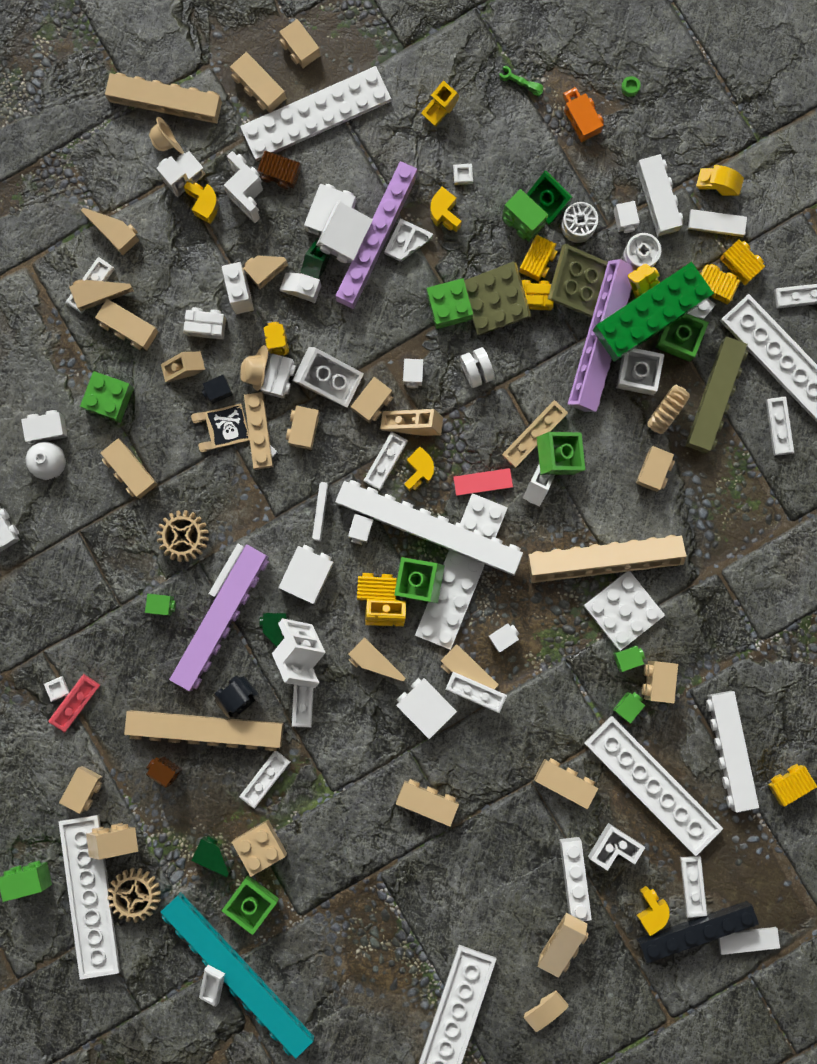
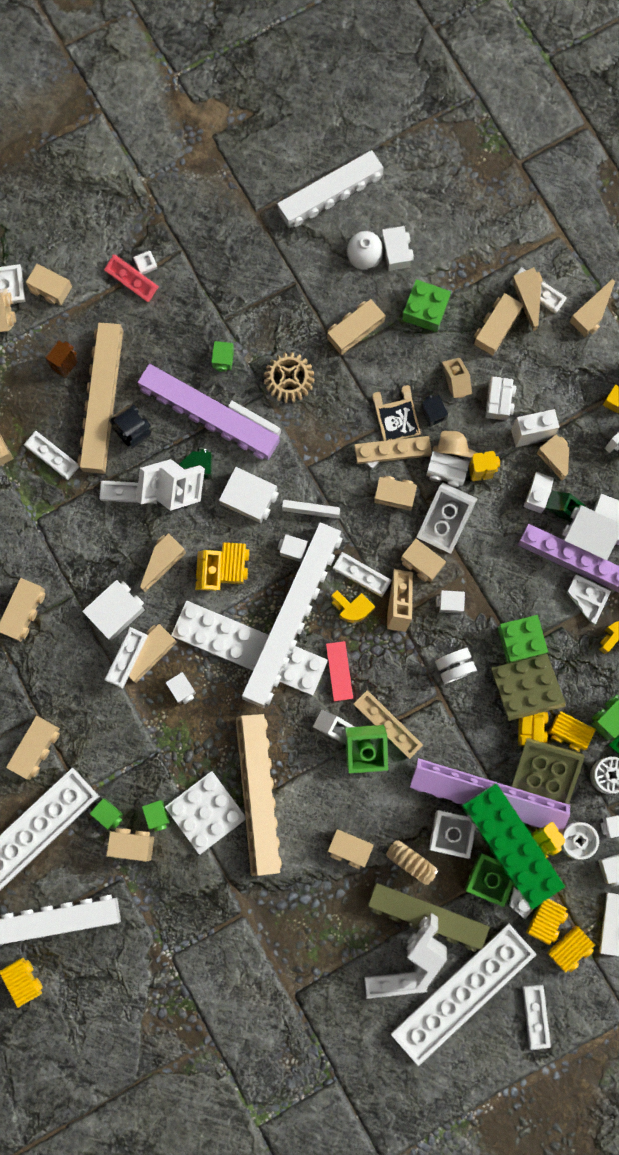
camera: 90 degrees right, 5 degrees down
(419, 580) = (239, 604): bright green brick -> none
(754, 393) = (426, 952): none -> white bracket

